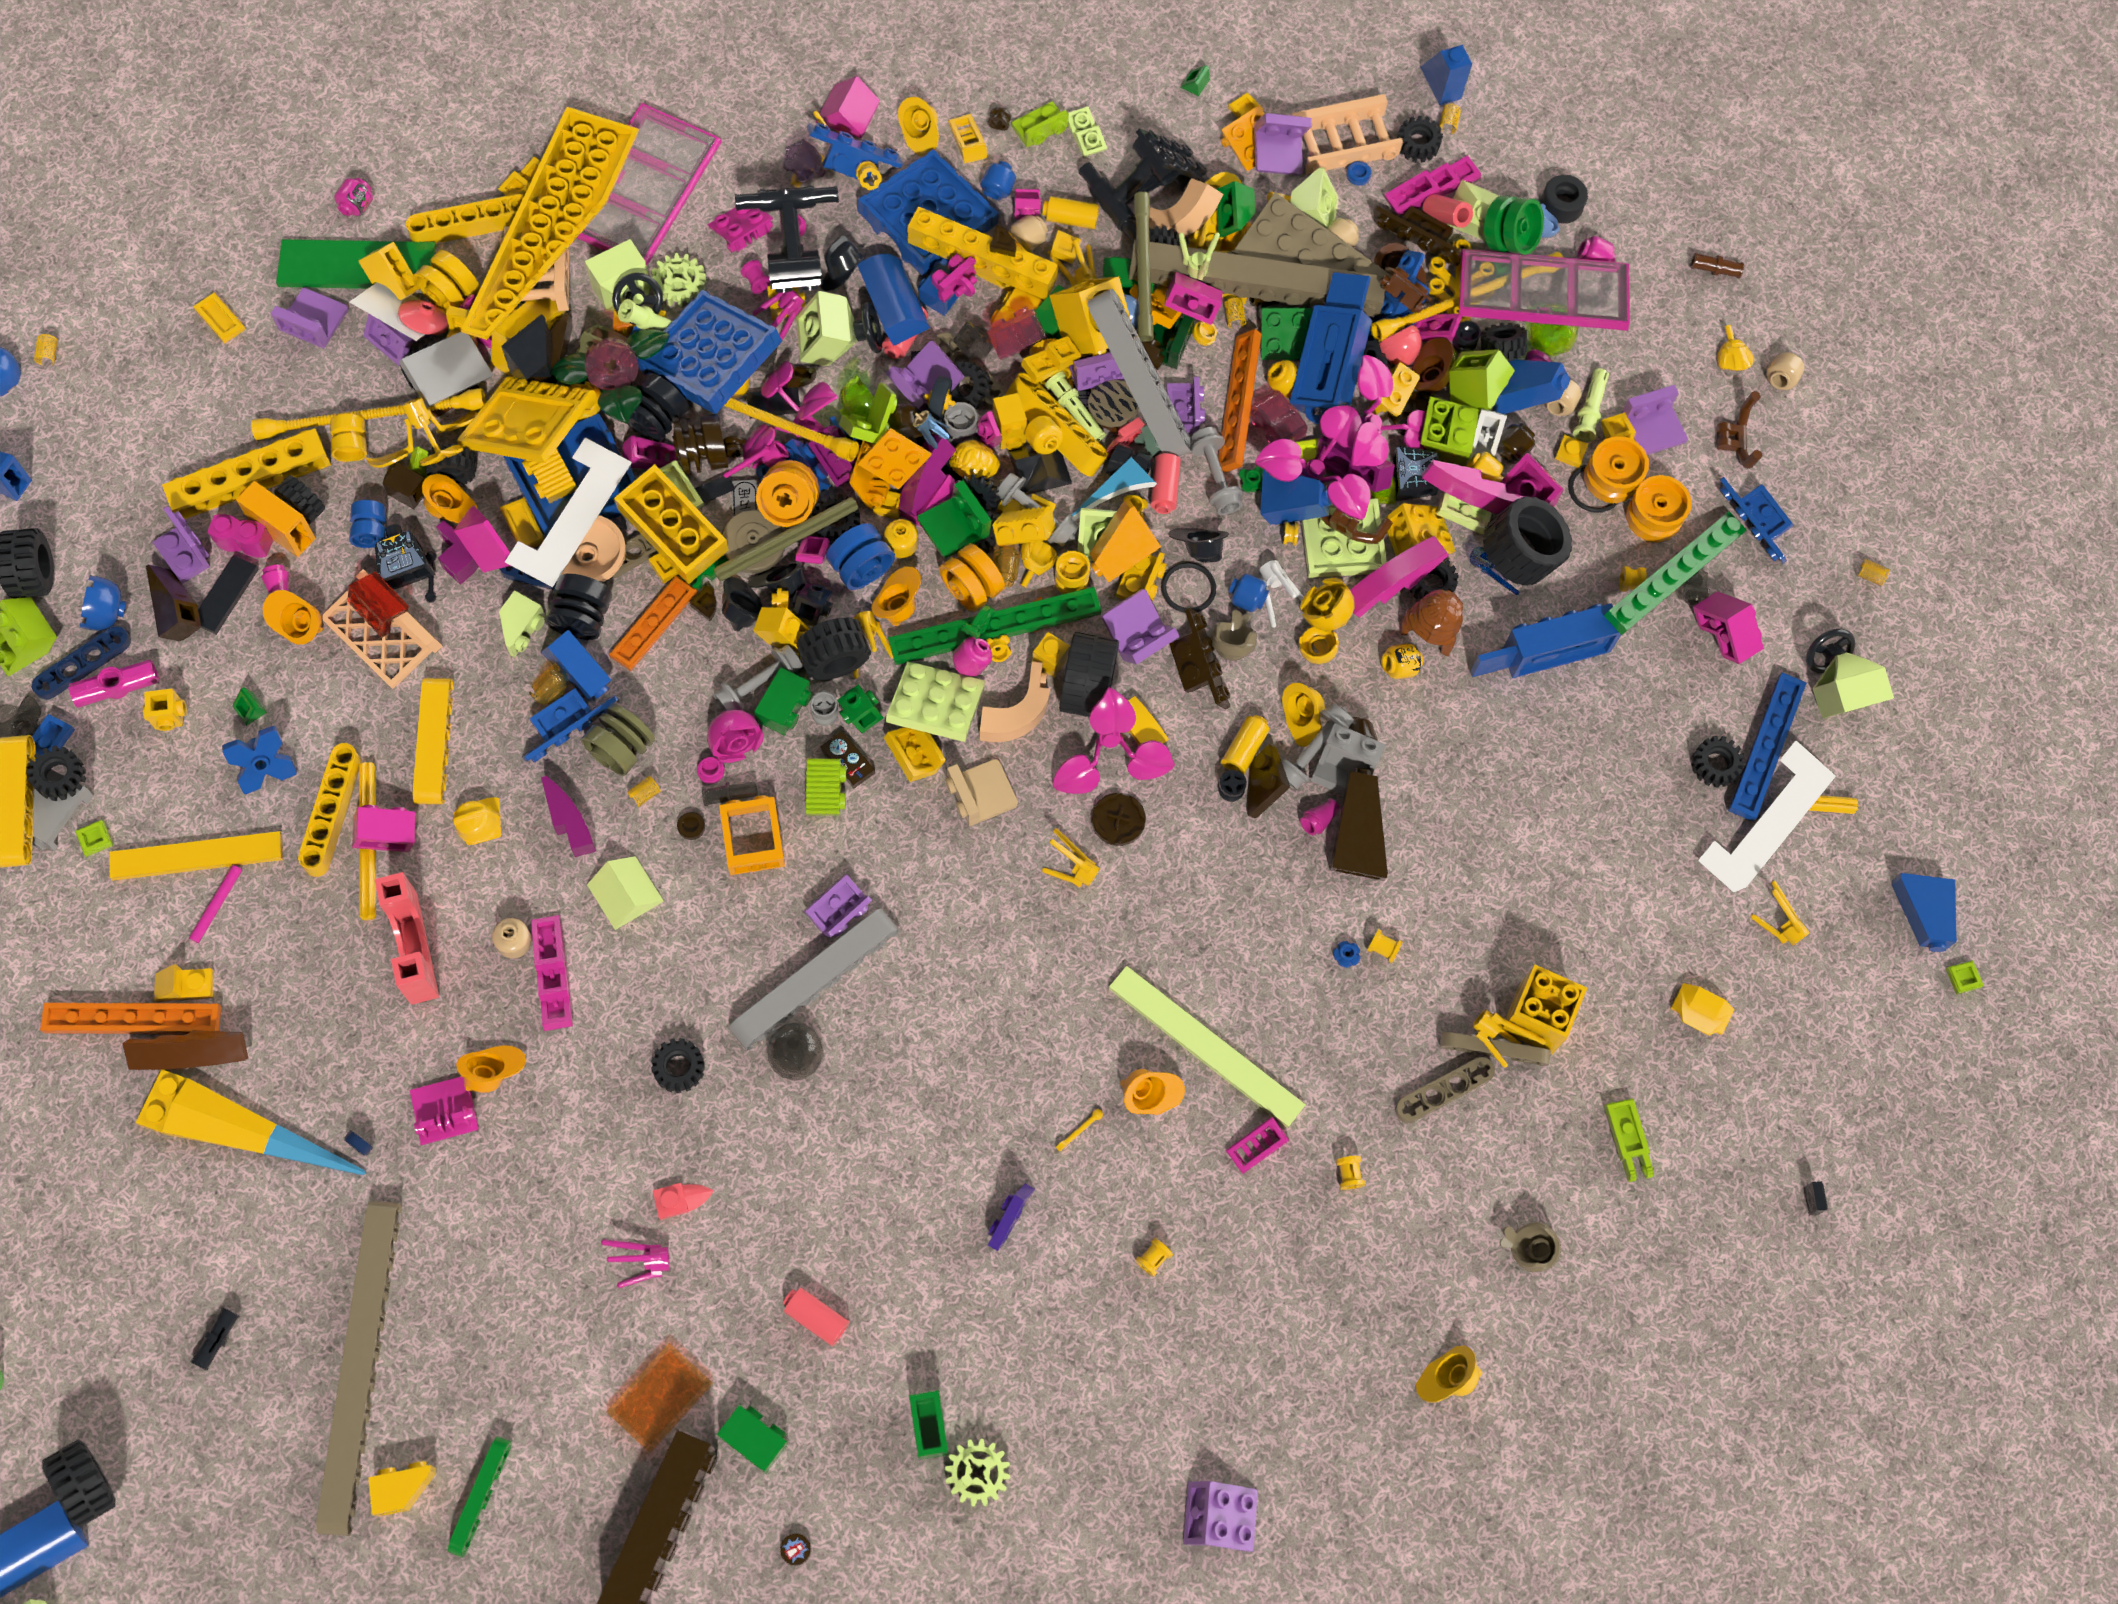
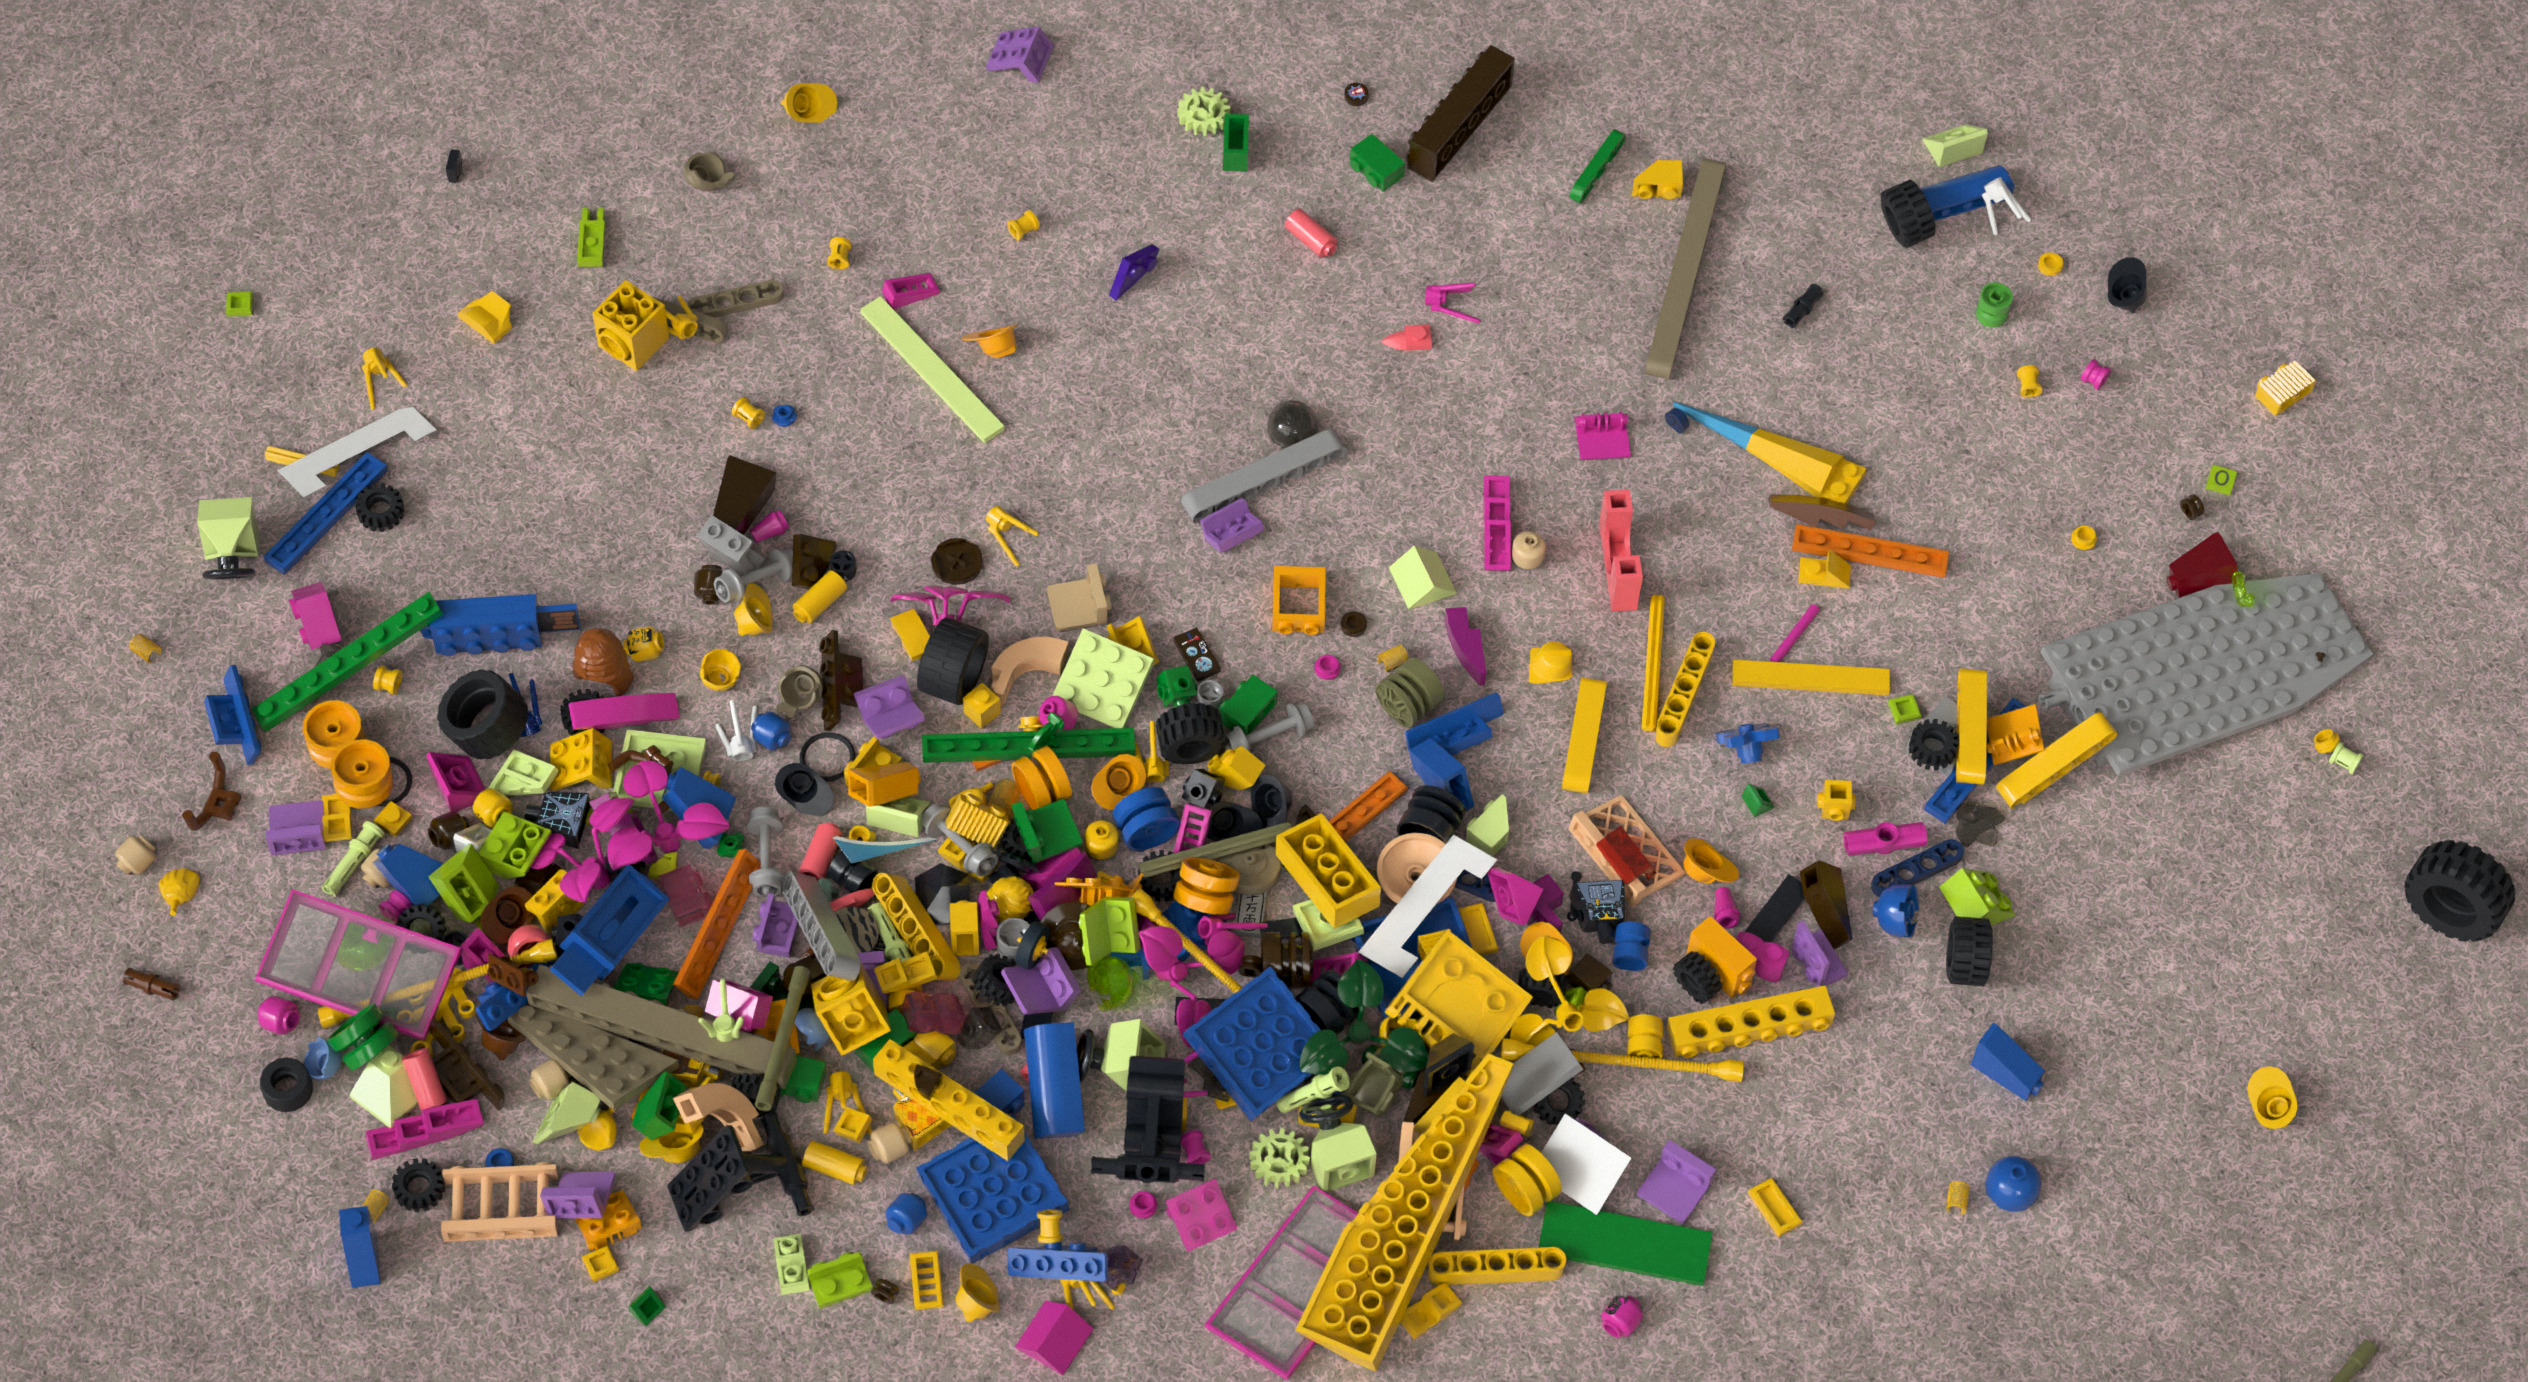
camera: 165 degrees left, 10 degrees down
(383, 828) = (1636, 656): dark pink brick -> none
(389, 269) = (1588, 1203): yellow arch -> none
(423, 317) = (1567, 1149): coral dish -> none
(487, 1068) = (1557, 451): light orange piece -> none
(550, 685) = (1472, 755): clear yellow hair -> none
(603, 353) = (1357, 1029): clear pink plate -> none
(659, 1398) = (1447, 207): clear orange tile -> none
(671, 1050) = (1396, 443): black tyre -> none
(729, 792) = (1313, 642): clear smoke axle -> none
(733, 735) = (1301, 681): dark pink cylinder -> none
(780, 599) = (1233, 790): yellow plate -> none
(801, 377) = (1169, 1032): dark brown tile -> none
(824, 787) = (1223, 625): lime brick -> none
(840, 261) = (1098, 1138): black piece -> none
(925, 422) = (1054, 900): flat silver piece -> none
(959, 281) = (983, 1075): dark pink hips -> none
(1027, 202) = (881, 1175): dark pink brick -> none
(1043, 435) = (933, 901): yellow head -> none
(1072, 572) = (940, 775): yellow wheel -> none
(1097, 1114) = (1041, 337): yellow hinge -> none
(1283, 377) = (663, 932): yellow head -> none
(1328, 605) = (700, 697): yellow cylinder -> none
(1468, 486) = (514, 775): dark pink slope -> none
(1929, 908) = (244, 355): blue slope -> none

